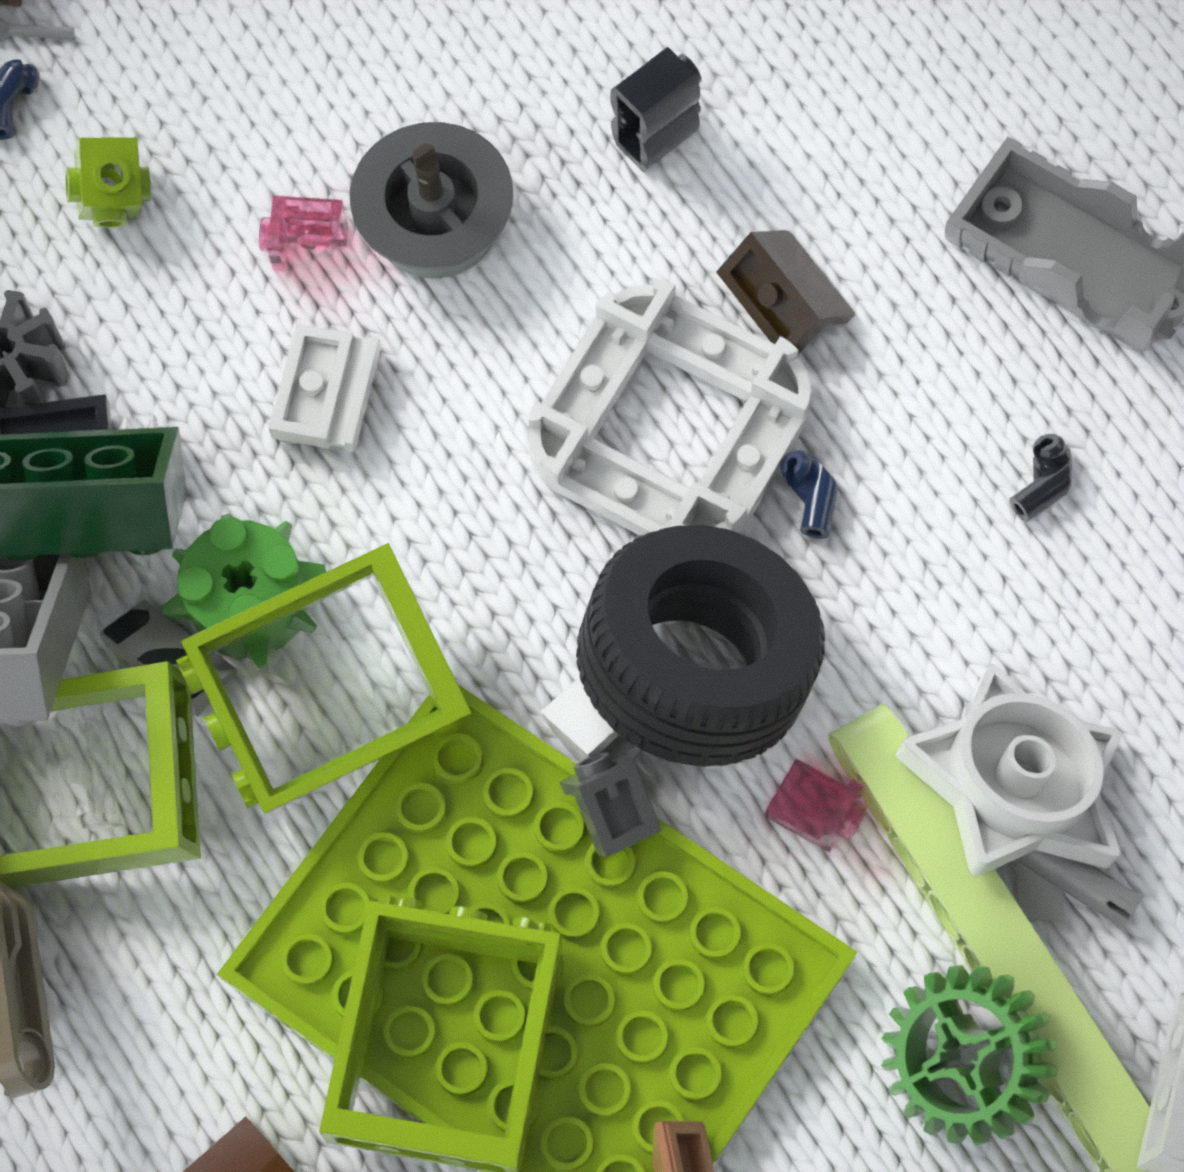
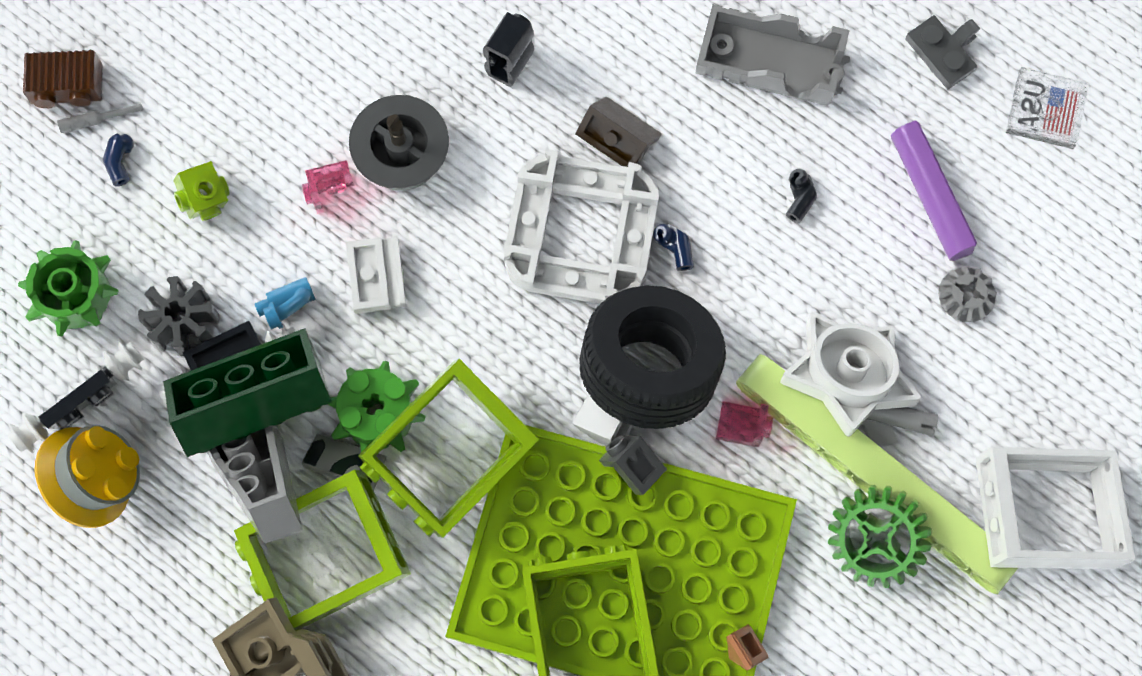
camera: 25 degrees left, 5 degrees up
(171, 383) = (285, 302): none -> dark azure plant

